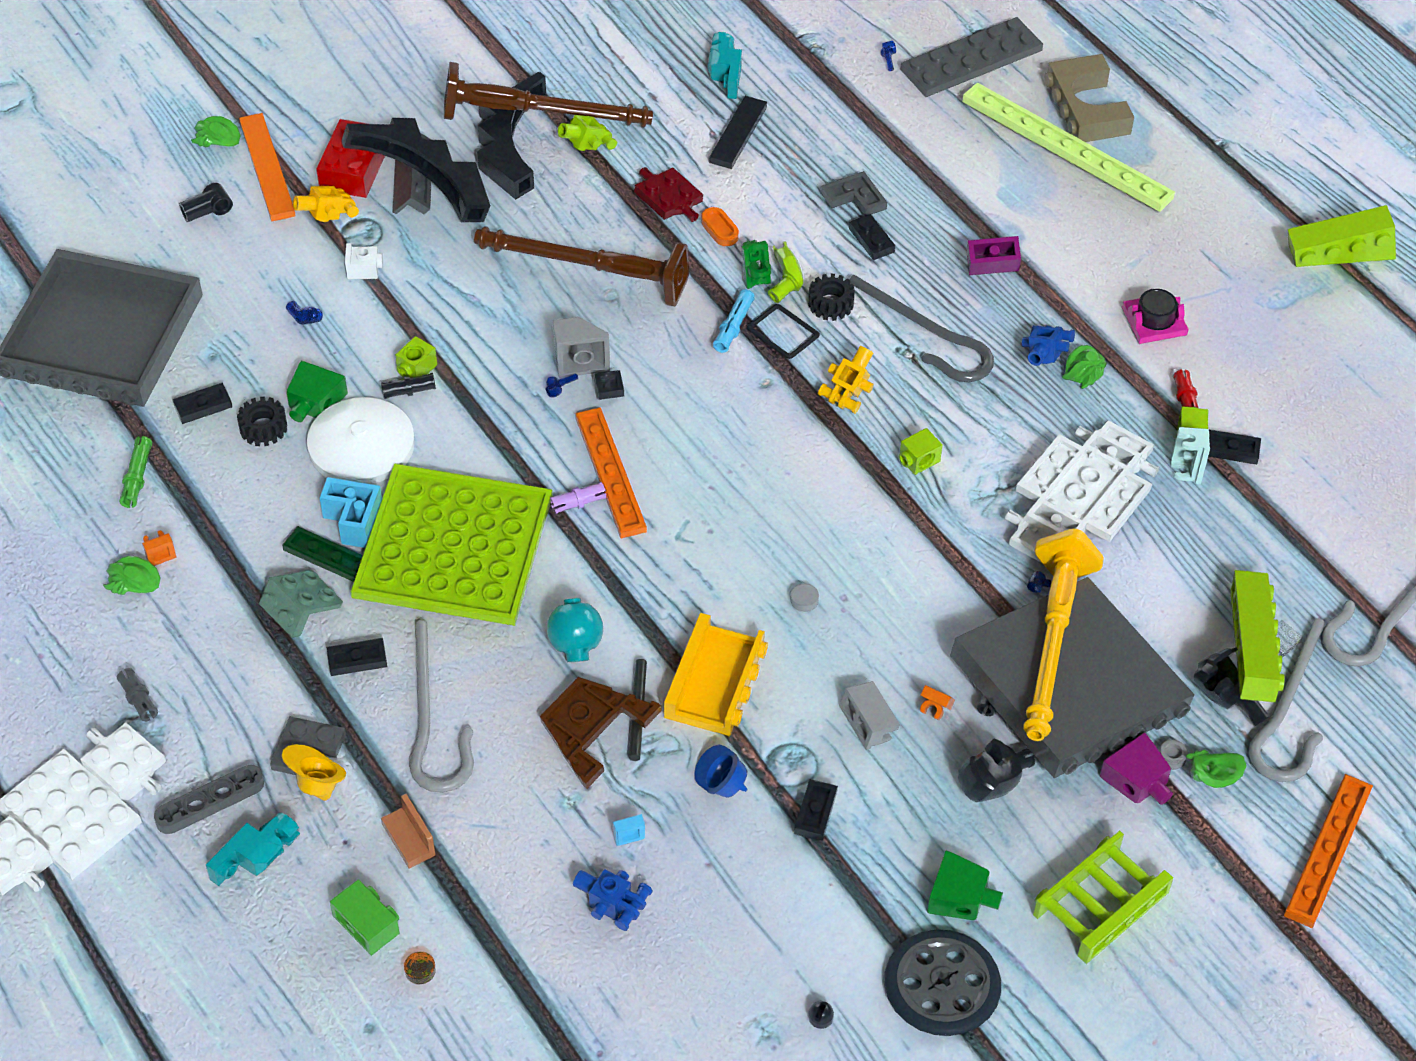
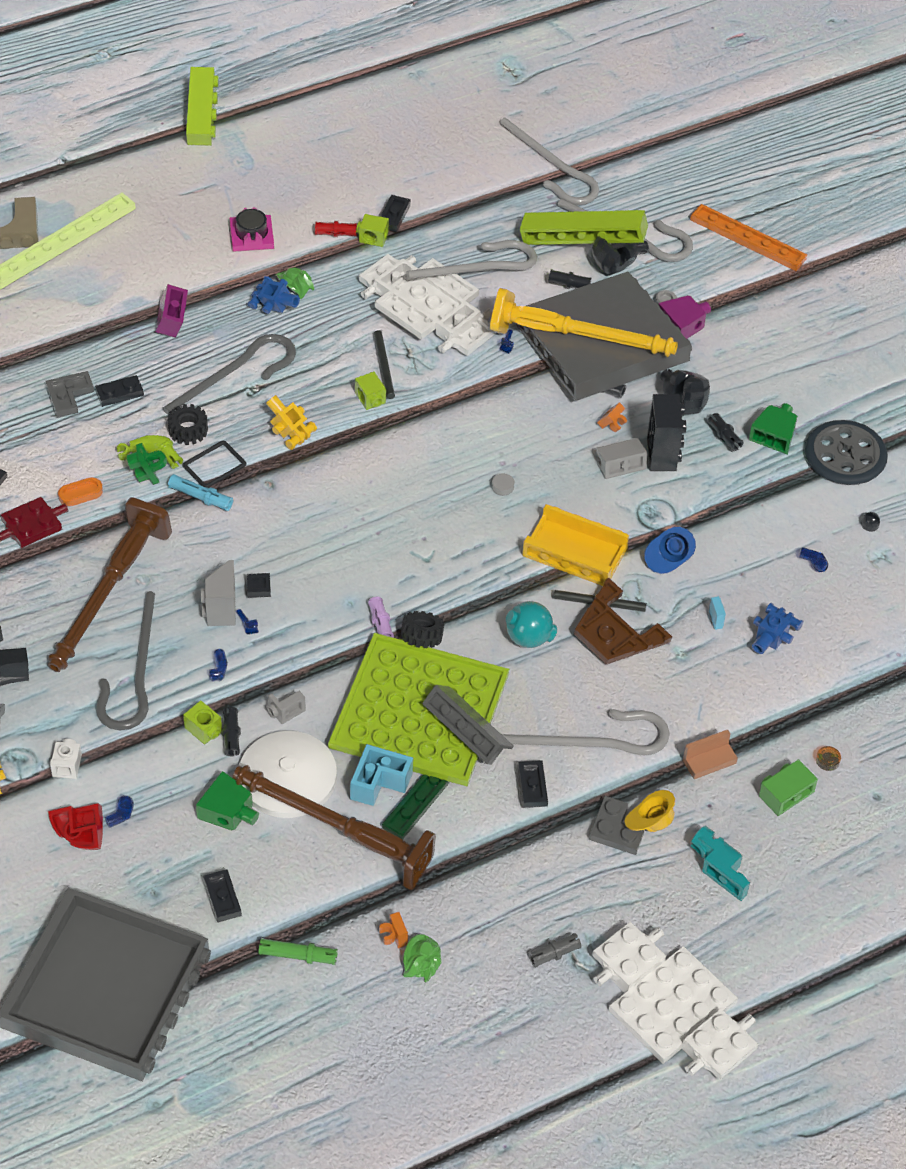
camera: 85 degrees left, 0 degrees up
(211, 802) = (664, 897): dark grey beam -> none
(242, 549) = (413, 857): none -> reddish brown piece
(259, 410) = (258, 859): black tyre -> none
(285, 286) = (79, 825): none -> red brick
(296, 596) = (470, 823): sand green bracket -> none
(426, 581) = (466, 723): none -> dark grey panel
(442, 425) = (287, 708): none -> light grey bracket
(481, 306) = (139, 680): none -> dark grey piece
(489, 367) = (221, 666): none -> clear blue arm
(552, 541) = (422, 629): none -> black tyre
(611, 473) = (351, 596): orange tile -> none
(737, 950) = (816, 558): none -> clear blue arm
(816, 810) = (703, 500): black plate -> none
(898, 741) = (665, 432): none -> black brick
(942, 830) = (725, 432): none -> black pin
(972, 465) = (384, 364): none -> pearl dark grey bar
(1111, 923) = (791, 338): lime fence -> none
(1162, 546) = (445, 270): none -> light grey piece
(1172, 639) = (568, 279): none -> black pin
(1191, 453) = (408, 230): light aqua hinge -> none
(1216, 769) = (682, 276): bright green hat -> none

